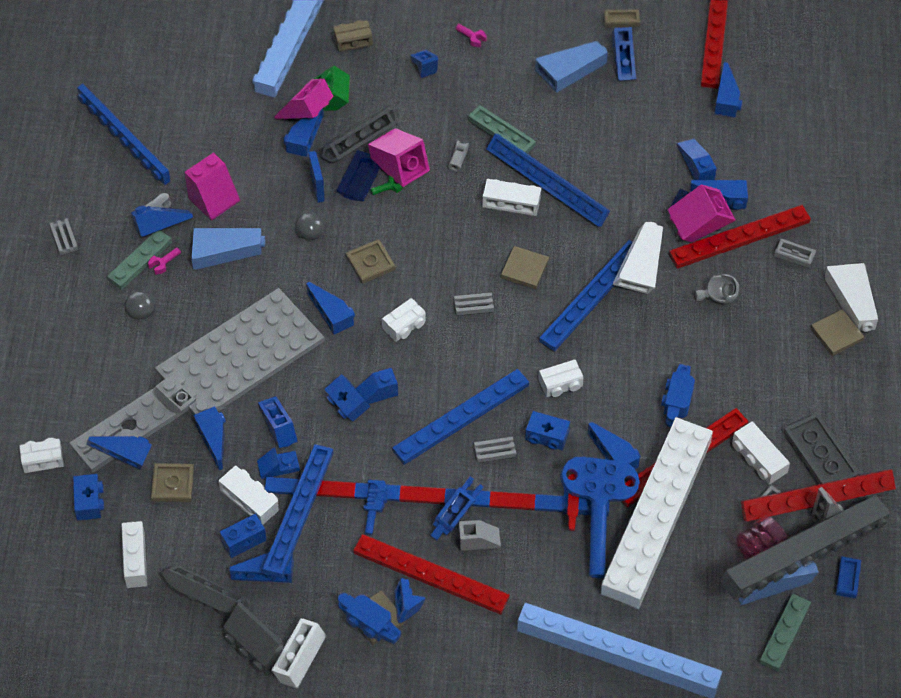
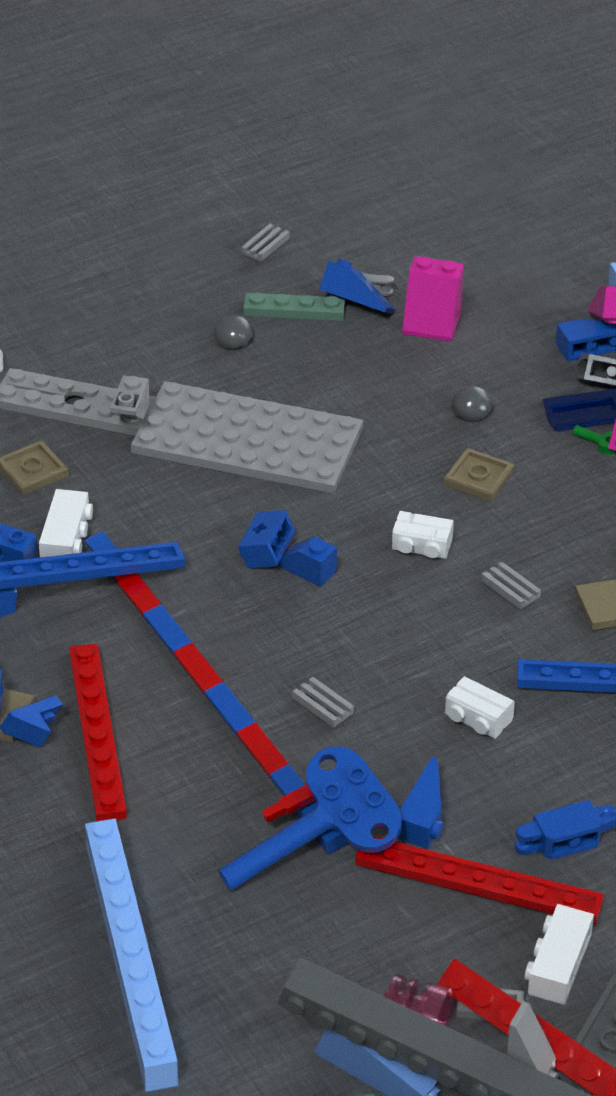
camera: 55 degrees right, 15 degrees down
(124, 448) = (34, 403): blue slope -> none
(126, 138) = (438, 208): blue plate -> none
(162, 261) = (301, 322): dark pink bar -> none
(211, 428) = (118, 463): blue slope -> none
(225, 245) = (373, 352): medium blue slope -> none
(277, 464) = (128, 531): blue slope -> none
(278, 422) = (180, 504): blue slope -> none
(316, 176) = (536, 368): blue tile -> none
(332, 309) = (372, 477): blue slope -> none
(375, 502) = (155, 631): blue piece -> none
(455, 509) = (196, 697): blue hinge -> none
(460, 416) = (342, 651): blue plate -> none
(478, 535) = (180, 738): light grey slope -> none
(547, 430) = (391, 732): blue brick -> none
(656, 513) = (365, 886): white brick -> none

